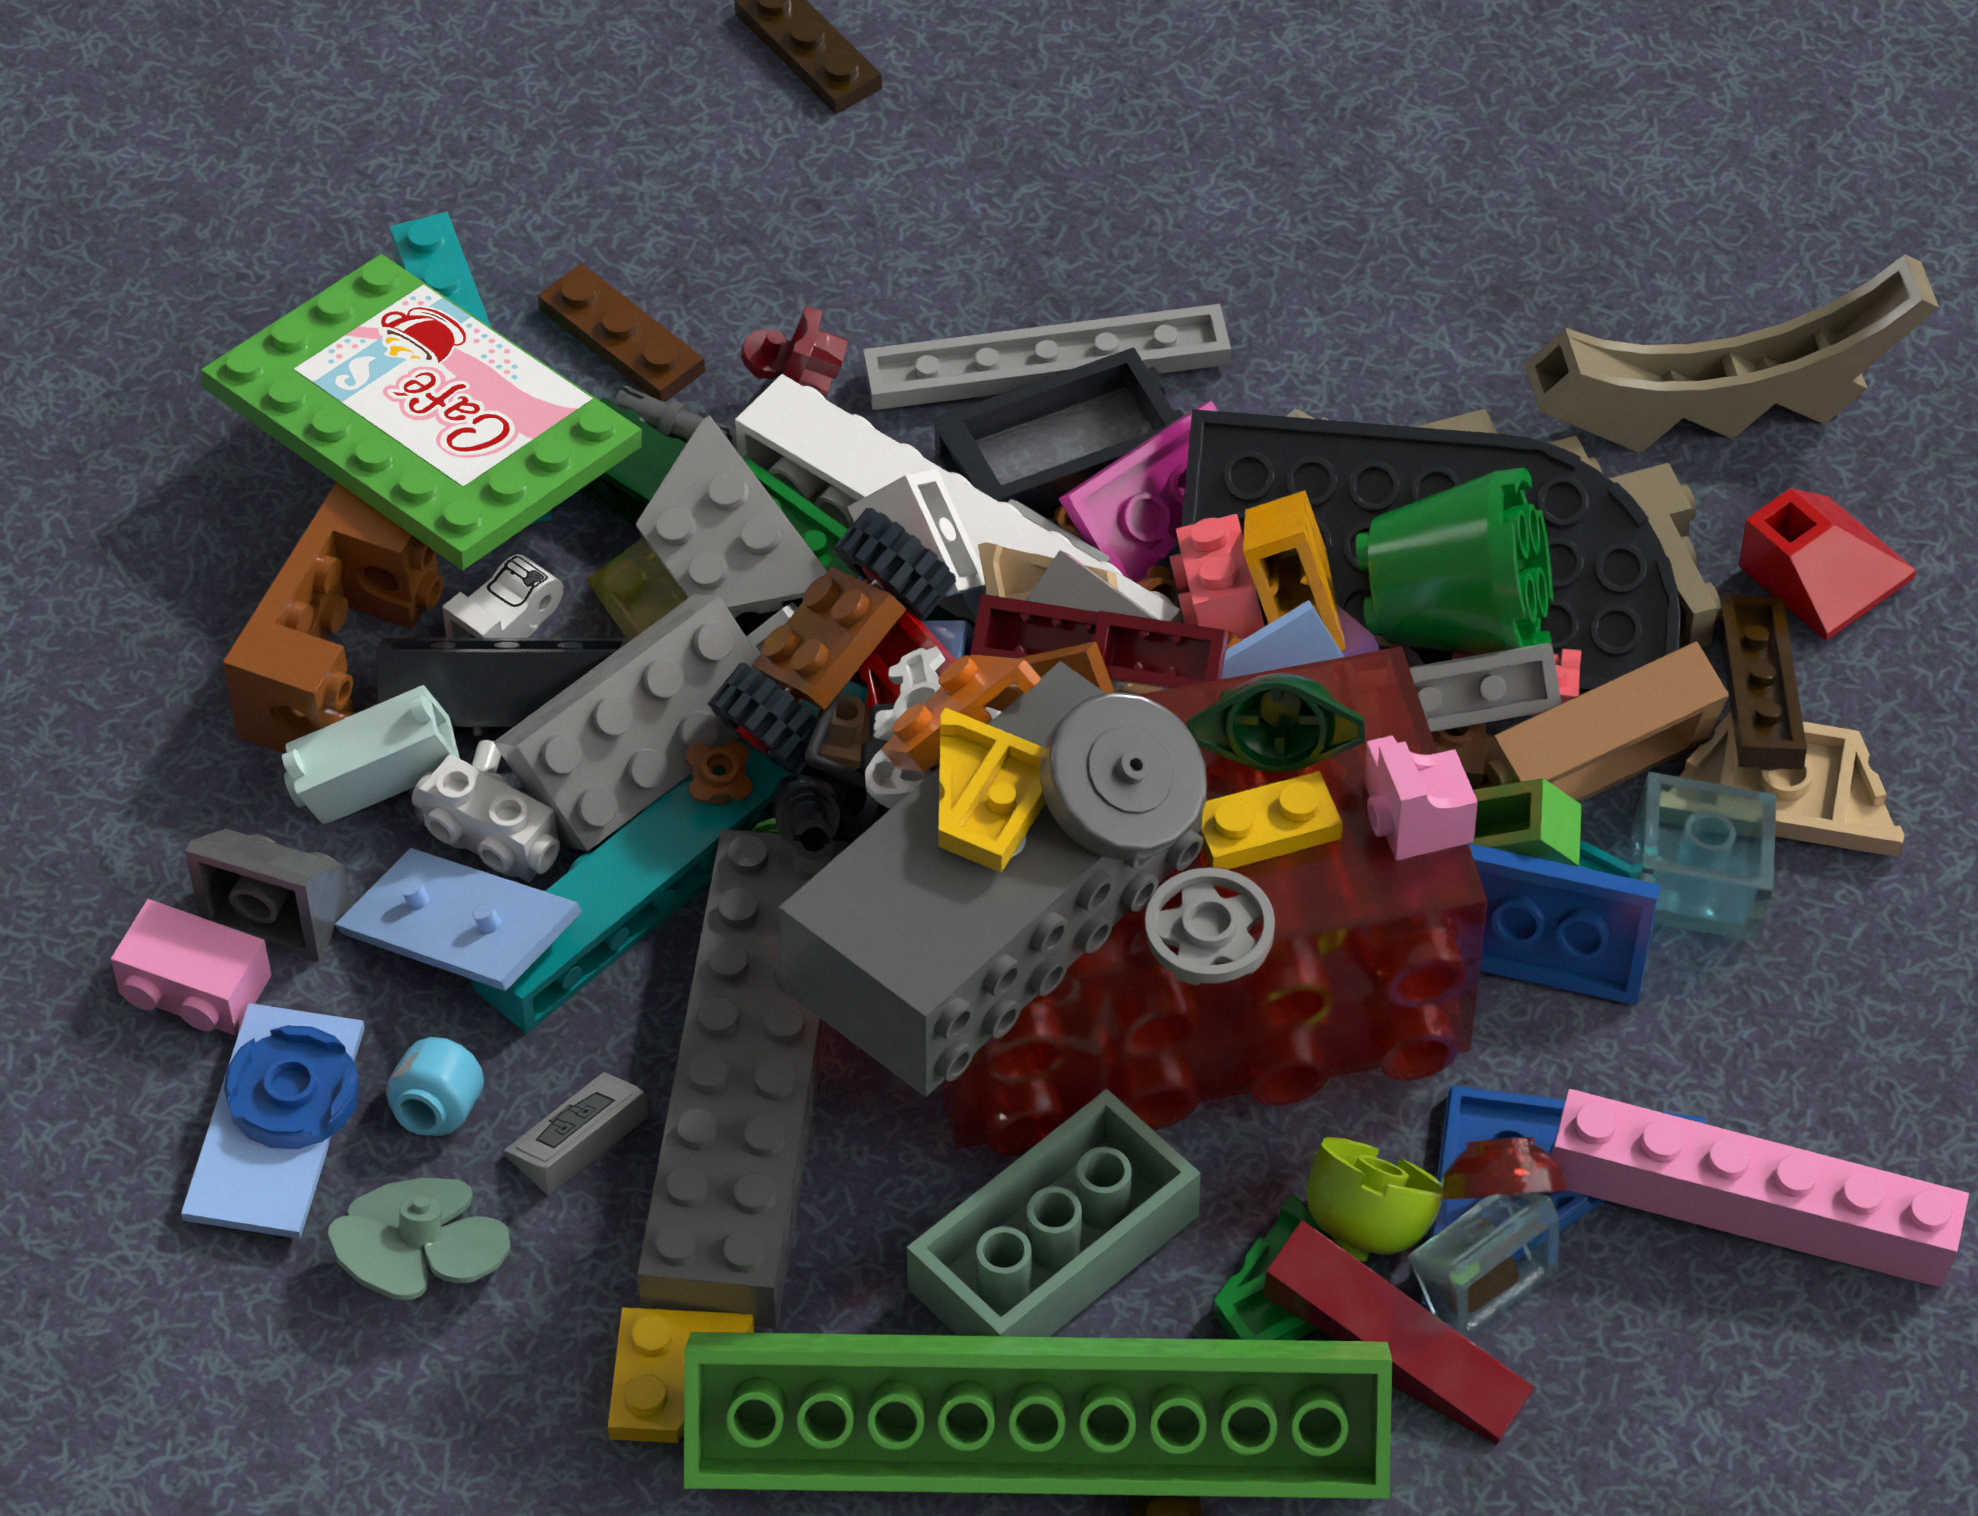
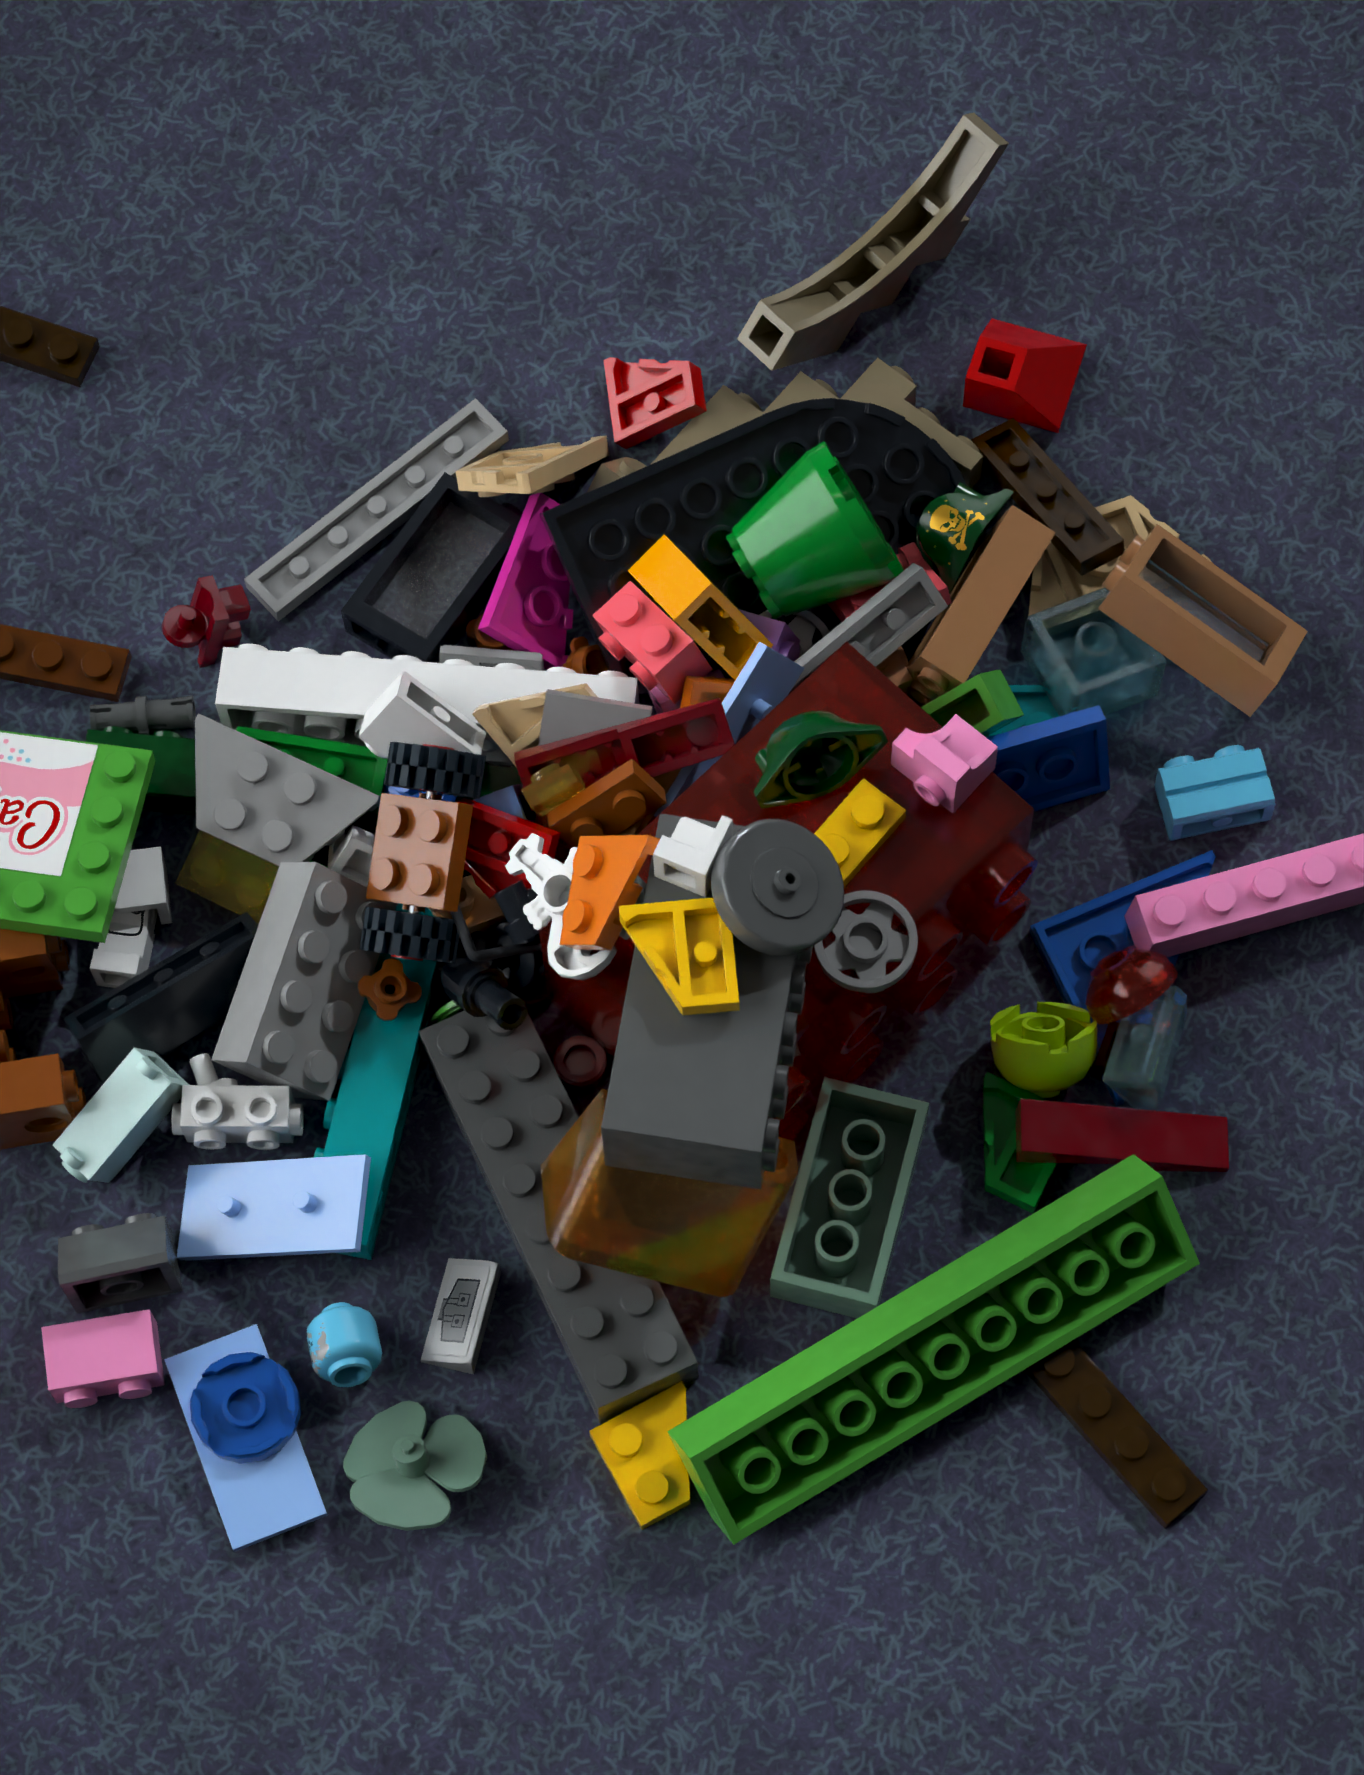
camera: 30 degrees left, 15 degrees up
(557, 560) = (145, 884): none -> white panel
(840, 1122) = (652, 1222): none -> clear orange windscreen
(998, 632) = (552, 787): none -> clear yellow plate
(1041, 703) = (690, 853): none -> white panel
(1221, 383) = (529, 468): none -> tan wing
(1404, 387) = (651, 397): none -> wing
(1629, 641) = (954, 526): none -> dark green hat
(1745, 1061) = (1214, 792): none -> medium azure brick
(1844, 873) = (1201, 618): none -> medium nougat window

